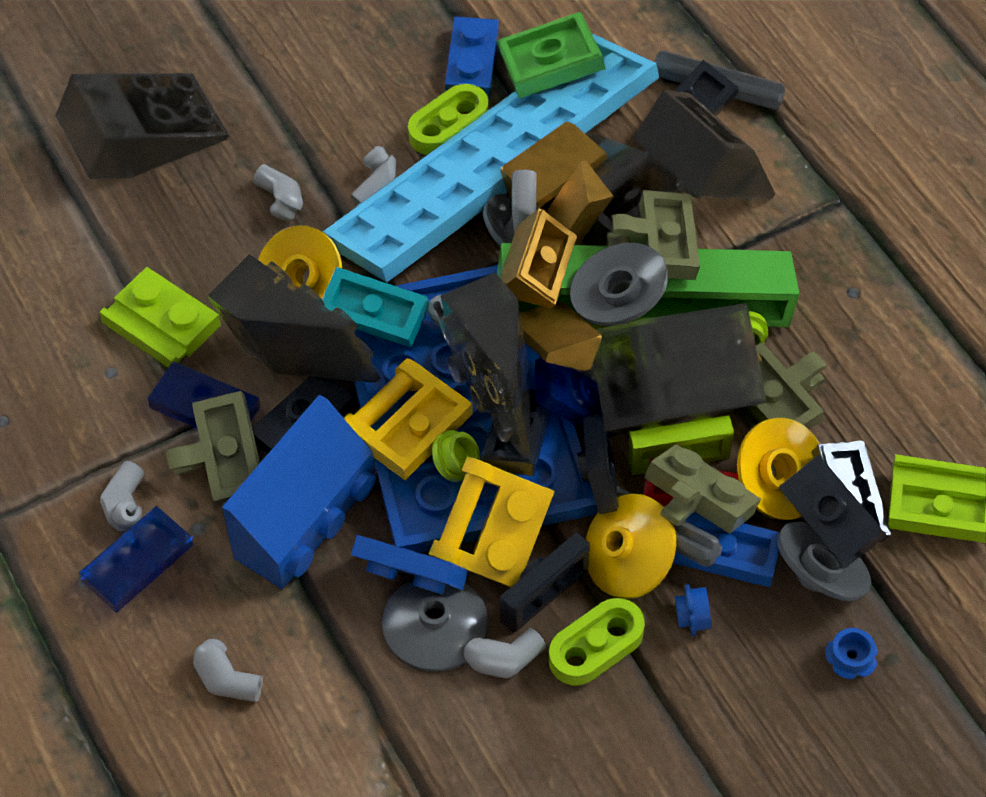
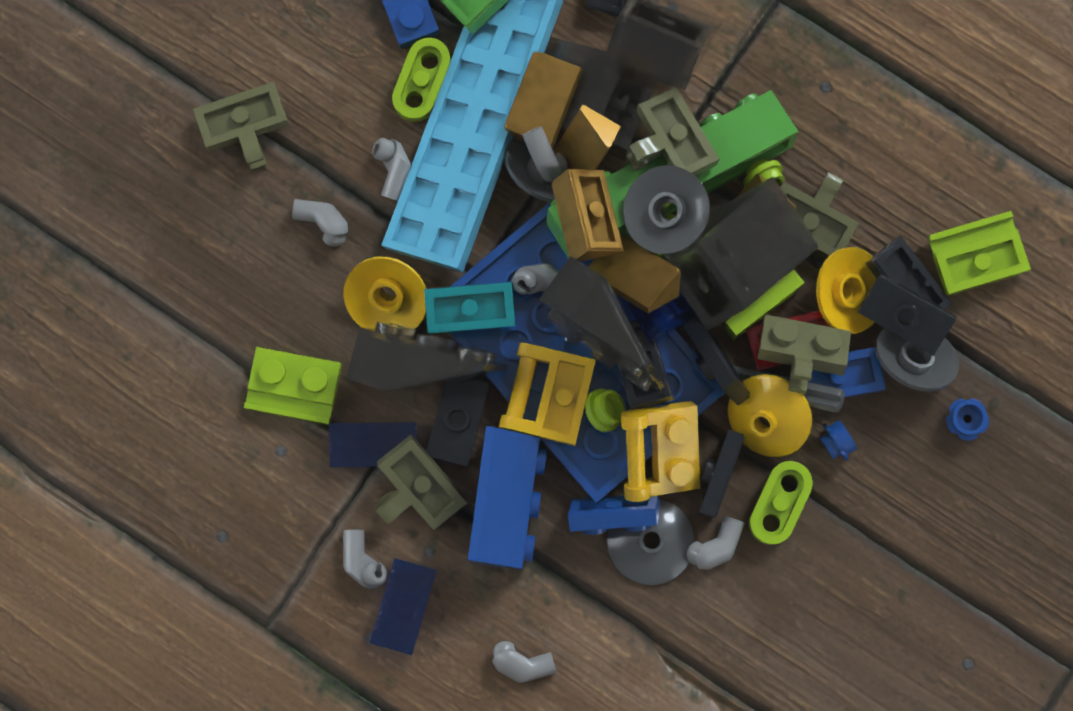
camera: 25 degrees left, 25 degrees up
(136, 121) = (164, 209): clear smoke slope -> none
(257, 83) = (242, 120): none -> olive plate

